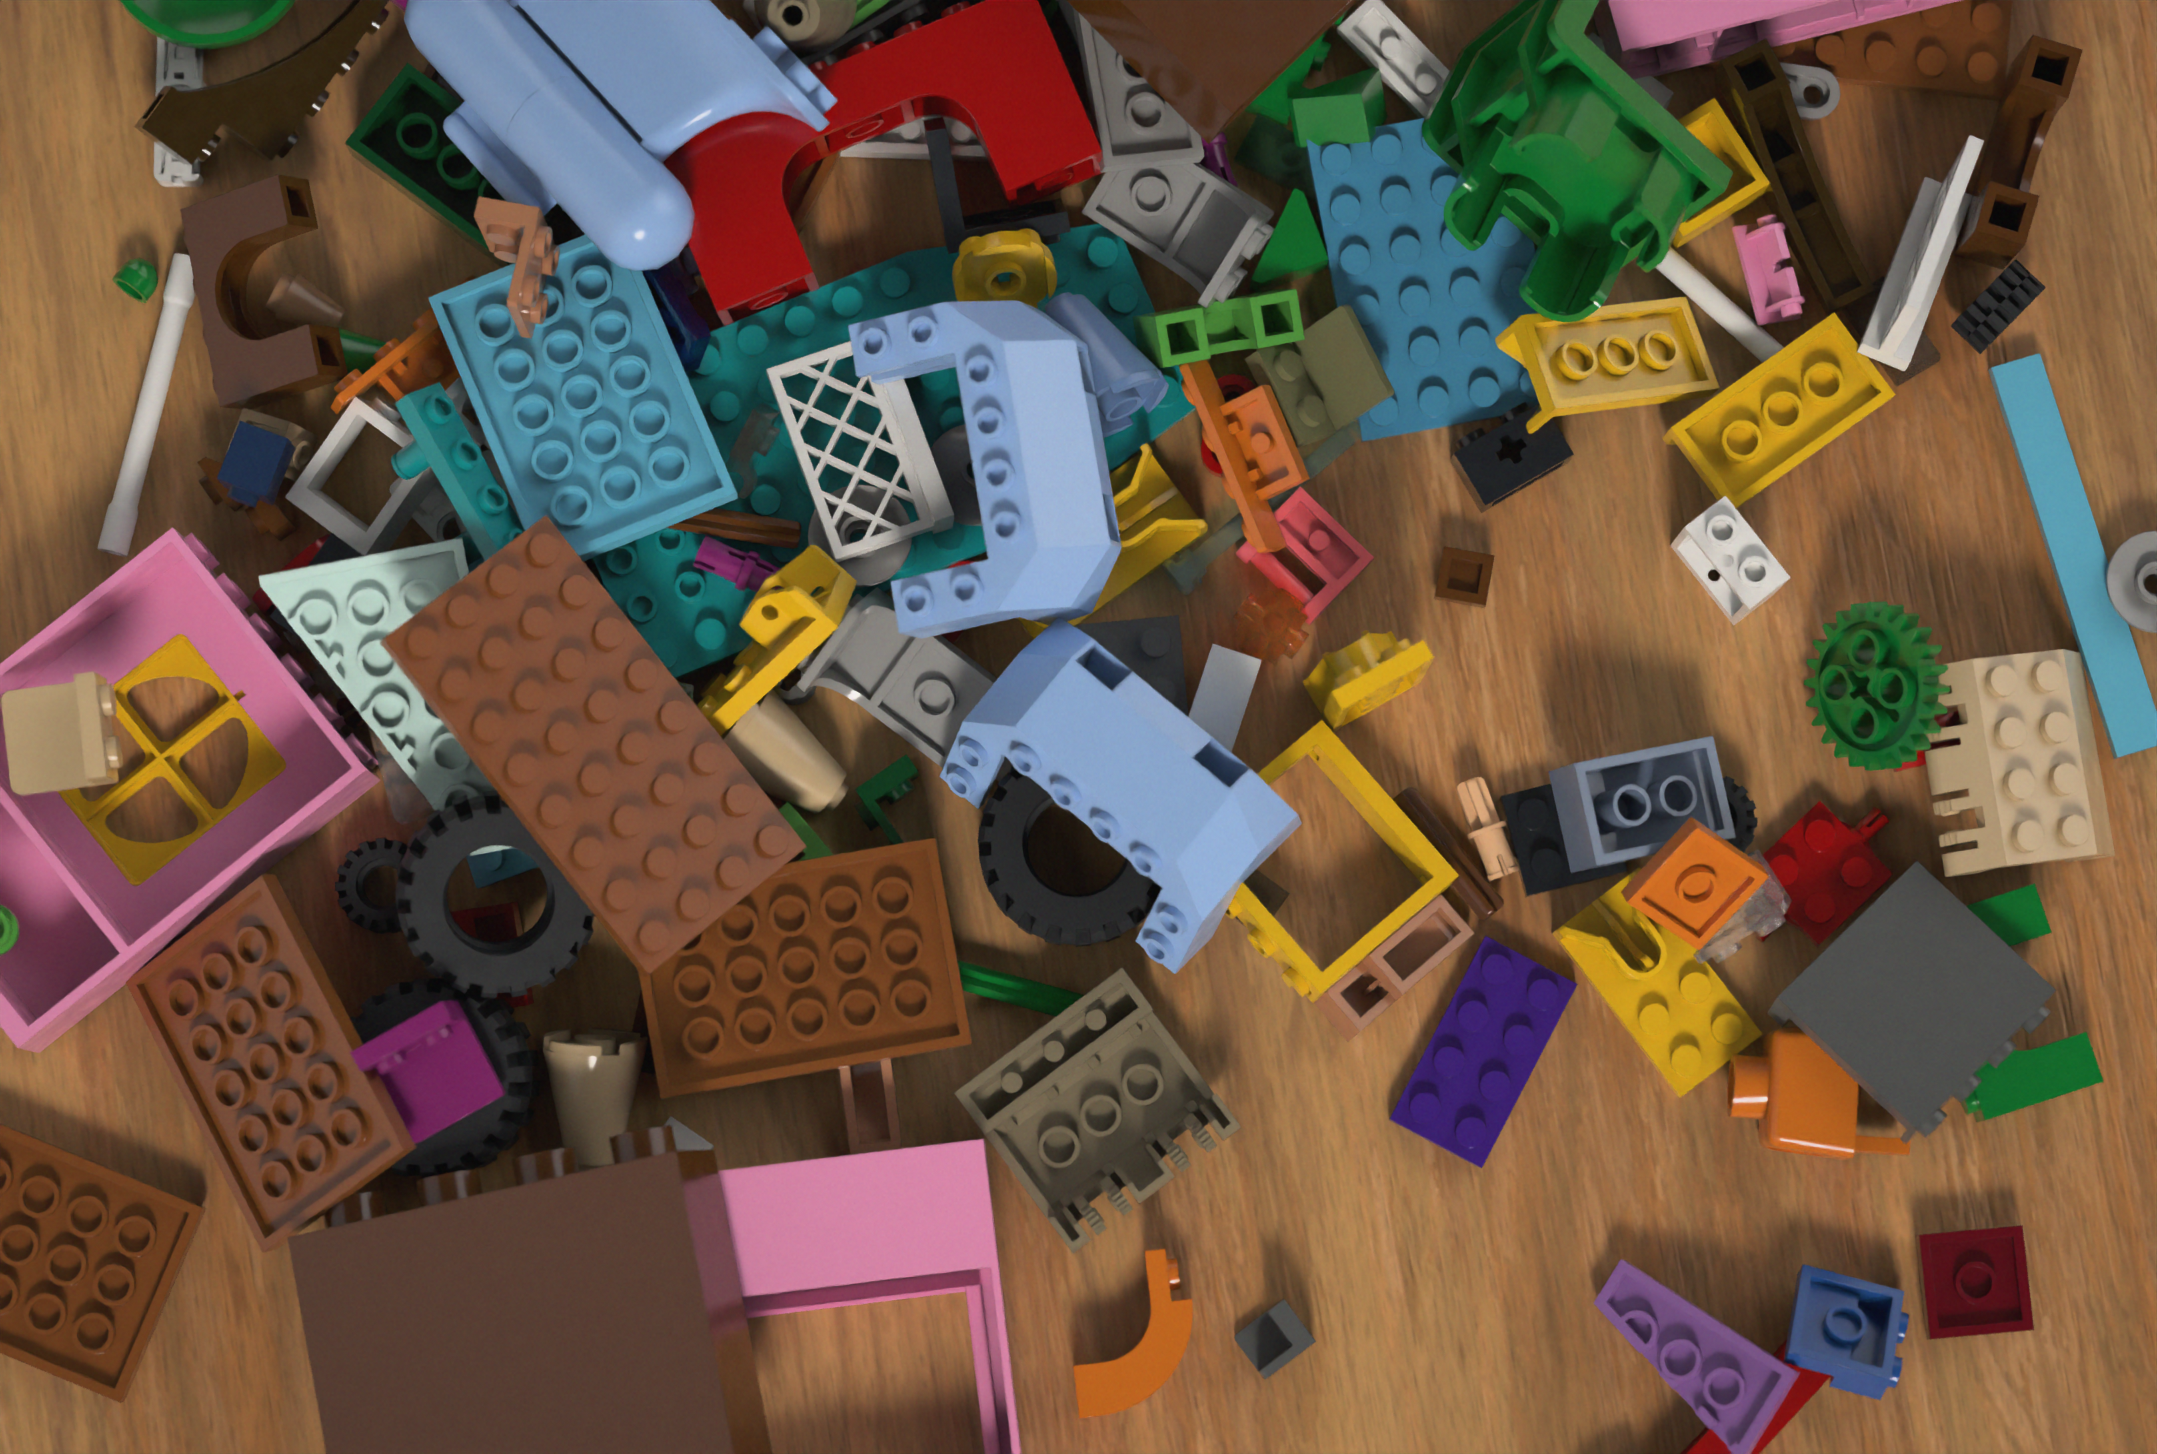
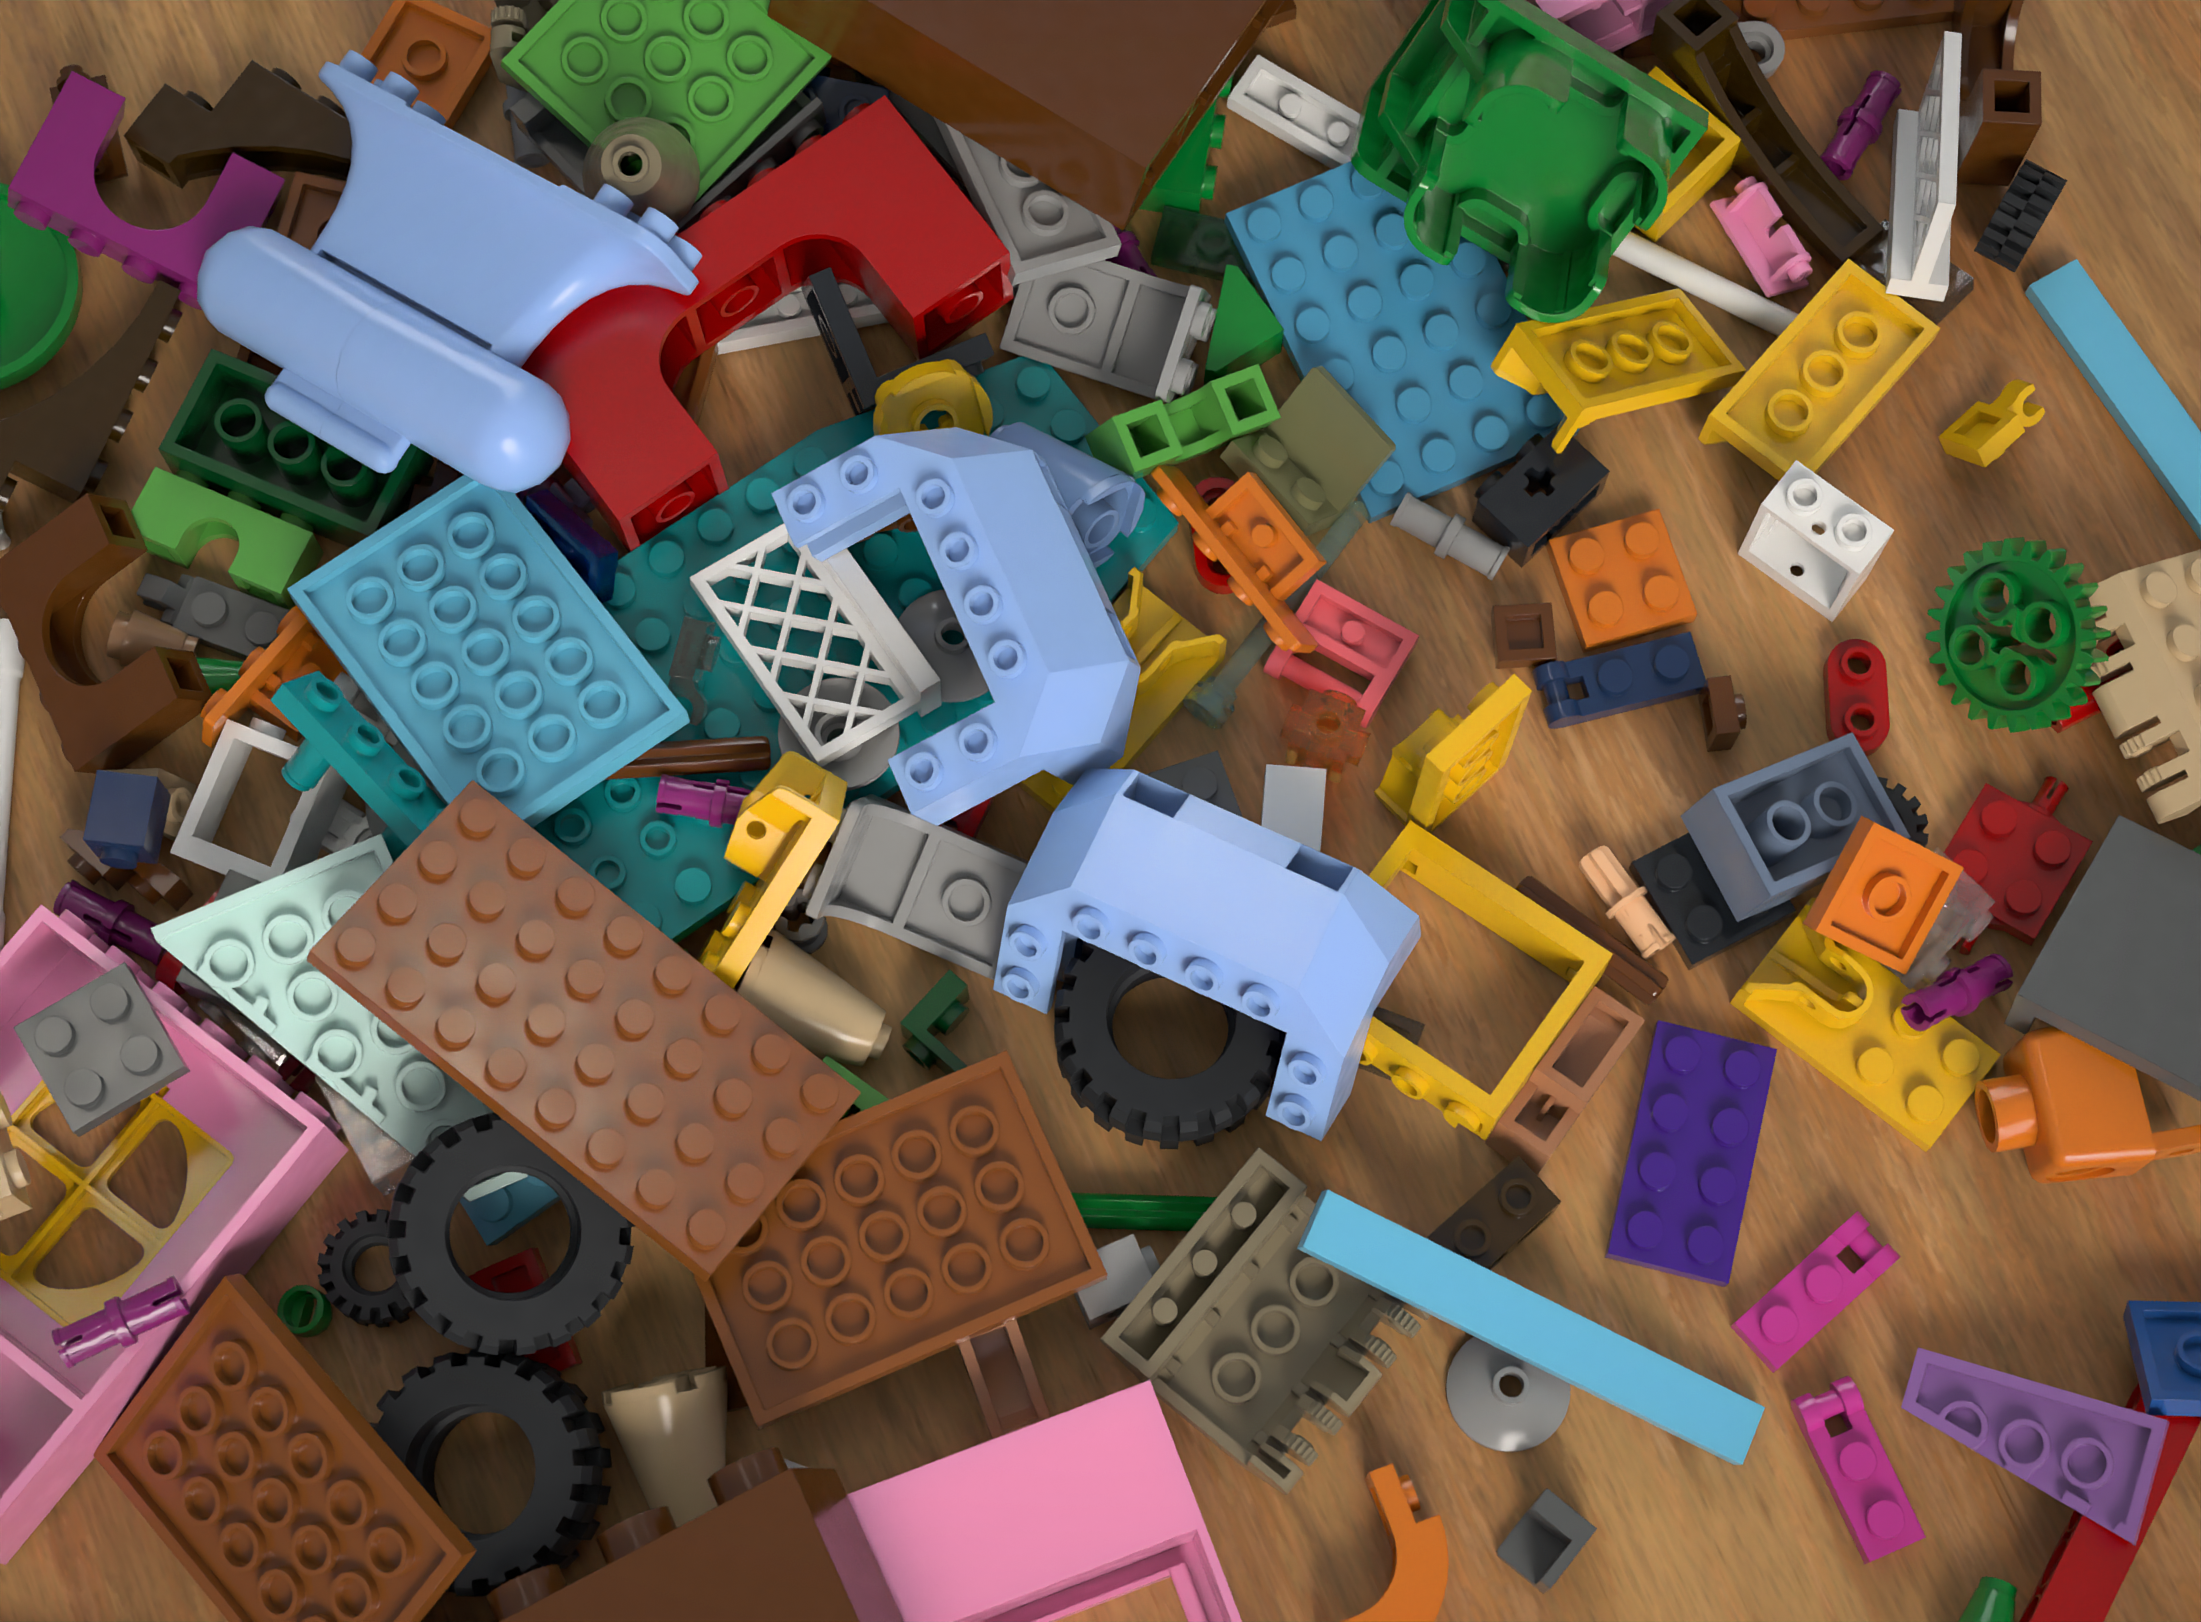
camera: 15 degrees left, 10 degrees down
(171, 893) = (120, 1322): none -> magenta pin
(198, 663) = (101, 1049): none -> plate
(227, 541) = (112, 921): none -> magenta pin
(311, 903) = (297, 1307): none -> green hinge
(366, 292) = (213, 613): none -> dark grey hinge
(423, 251) = (182, 515): none -> bright green arch
(432, 1069) = (476, 1453): magenta bracket -> none
(521, 237) = (379, 494): nougat bracket -> none
(990, 1042) = (1127, 1273): none -> light grey brick
(1259, 1228) = (1491, 1416): none -> light grey dish
(1298, 1073) = (1498, 1216): none -> dark brown brick
(1305, 1168) = (1530, 1327): none -> medium azure tile
(1339, 110) = (1251, 177): green slope -> none
(1425, 474) = (1449, 536): none -> light grey pin
(1537, 635) = (1620, 680): none -> dark blue plate
(1544, 1345) = (1857, 1471): none -> dark pink plate
(1550, 1192) = (1813, 1293): none -> dark pink plate
(1562, 547) = (1621, 580): none -> orange plate
(1613, 686) = (1721, 713): none -> reddish brown plate
(1733, 697) = (1856, 694): none -> red plate
(1739, 974) = (1957, 992): none -> magenta pin
(1886, 183) = (1860, 123): none -> magenta pin
(1919, 489) = (1991, 428): none -> yellow plate

